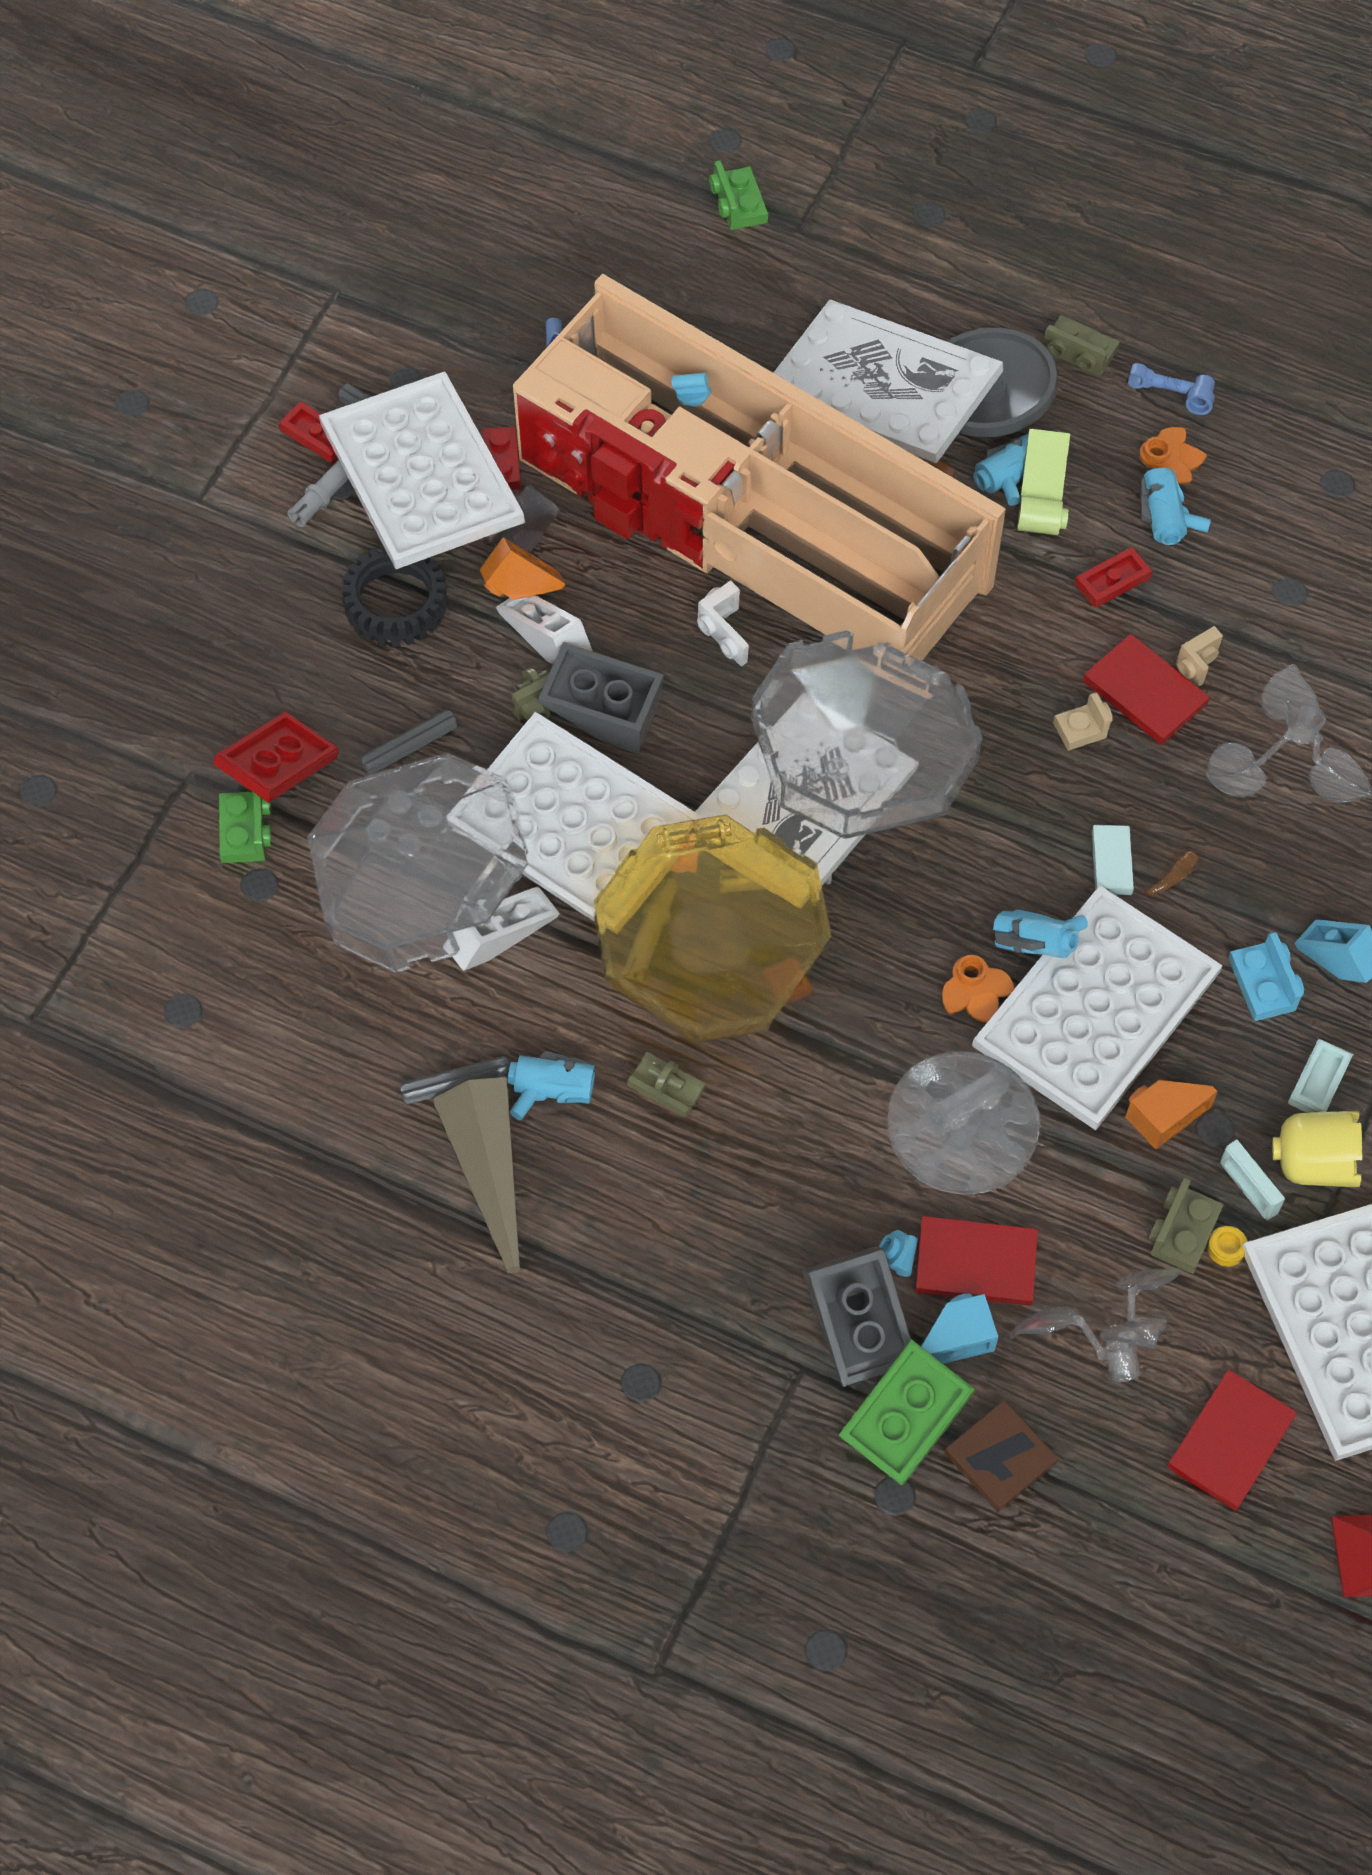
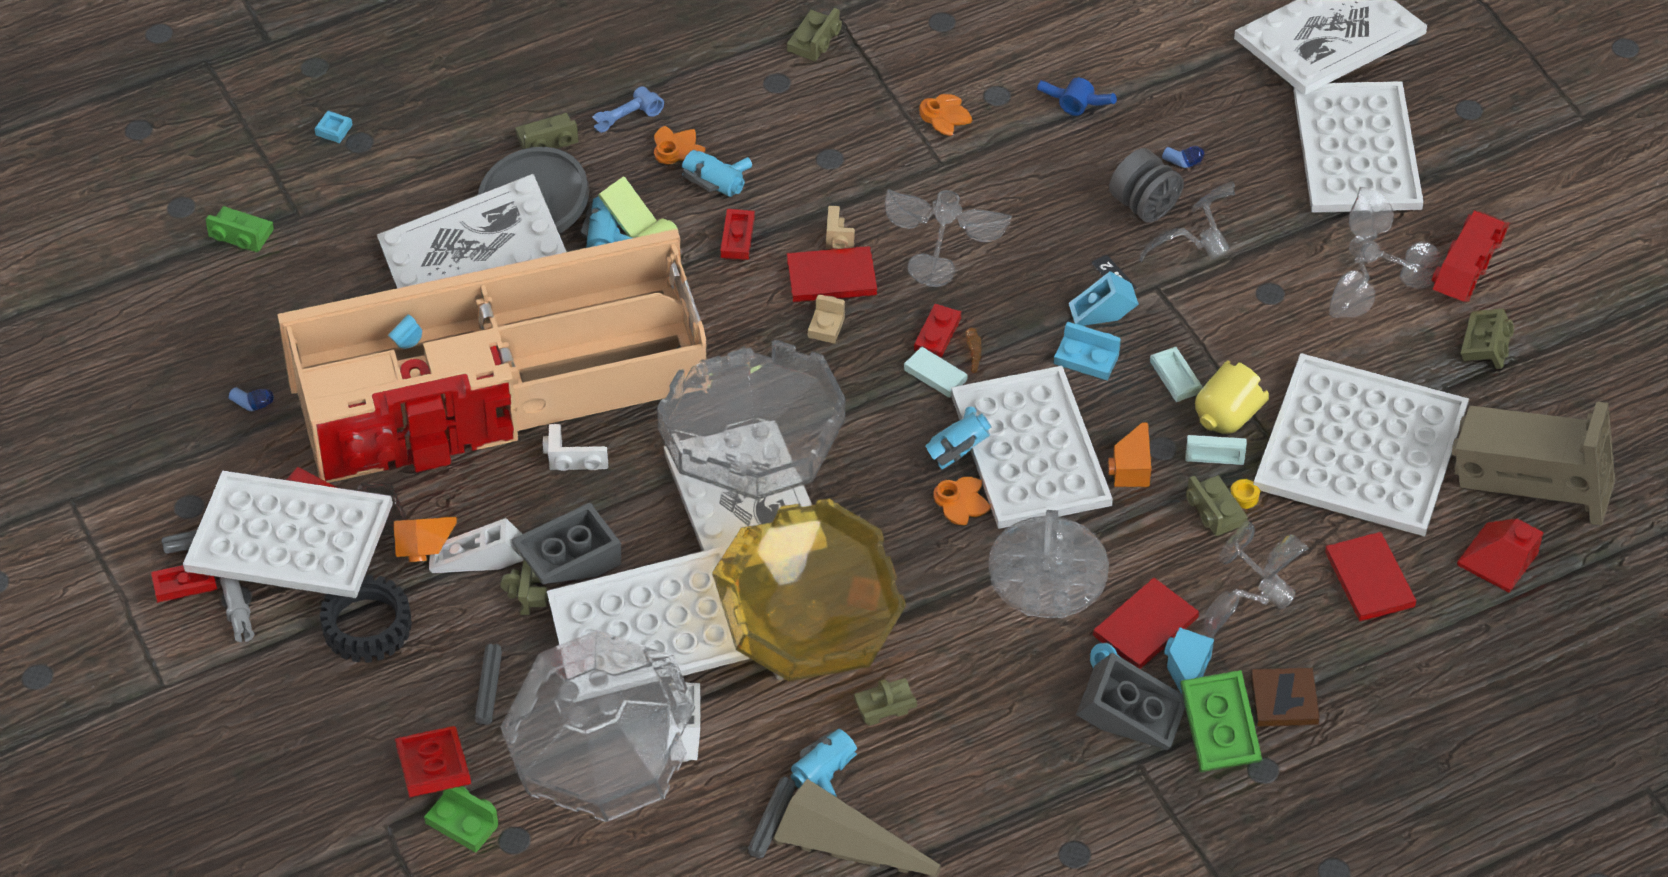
camera: 50 degrees left, 10 degrees down
(924, 181) = (333, 126): none -> medium azure tile
(1165, 827) = (938, 330): none -> red plate

